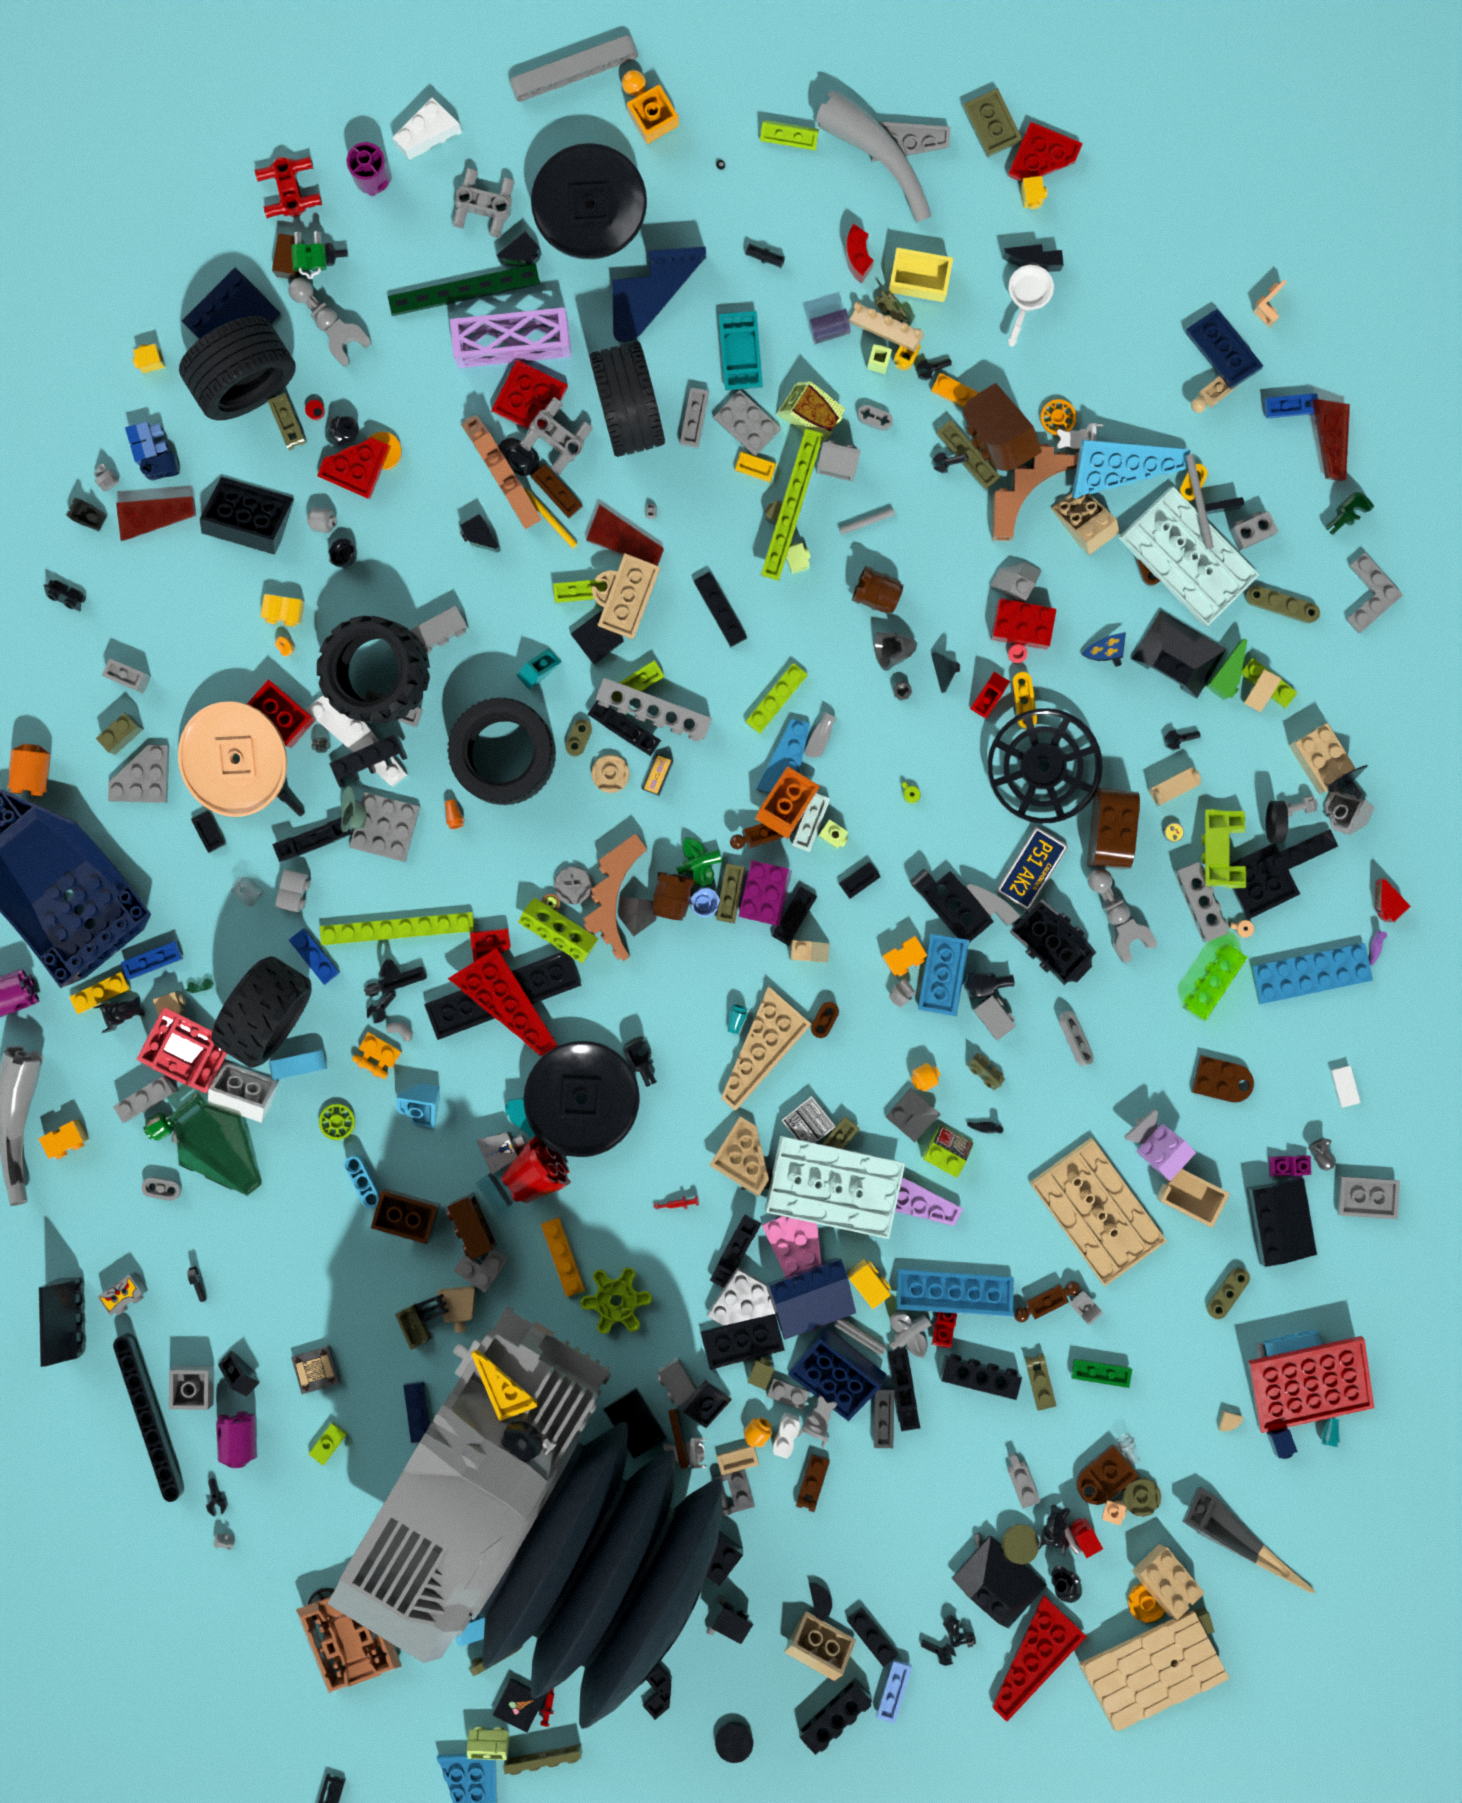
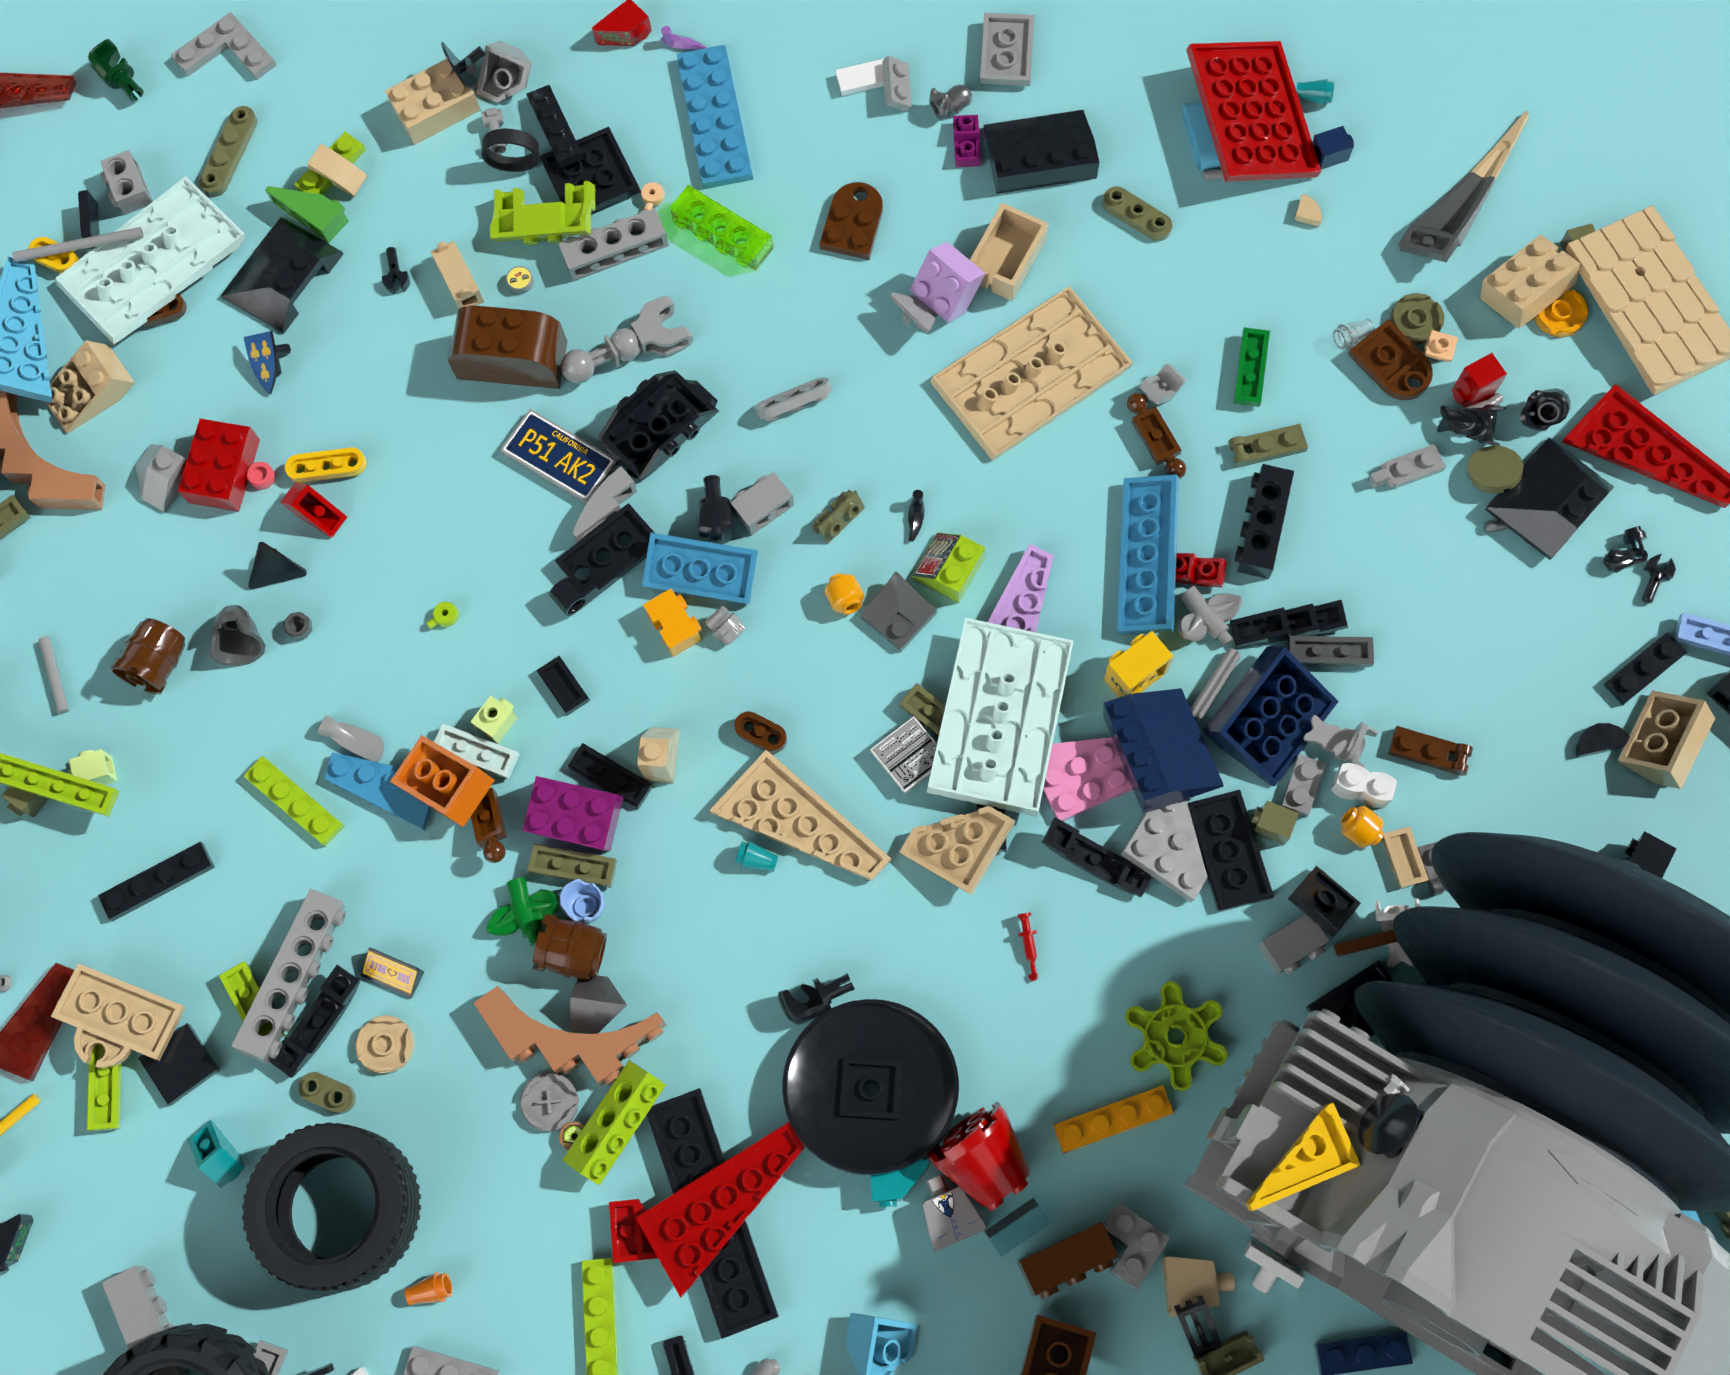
camera: 85 degrees left, 15 degrees down
(1056, 765) = (411, 424): black dish -> none
(1337, 1113) = (896, 84): none -> light grey plate

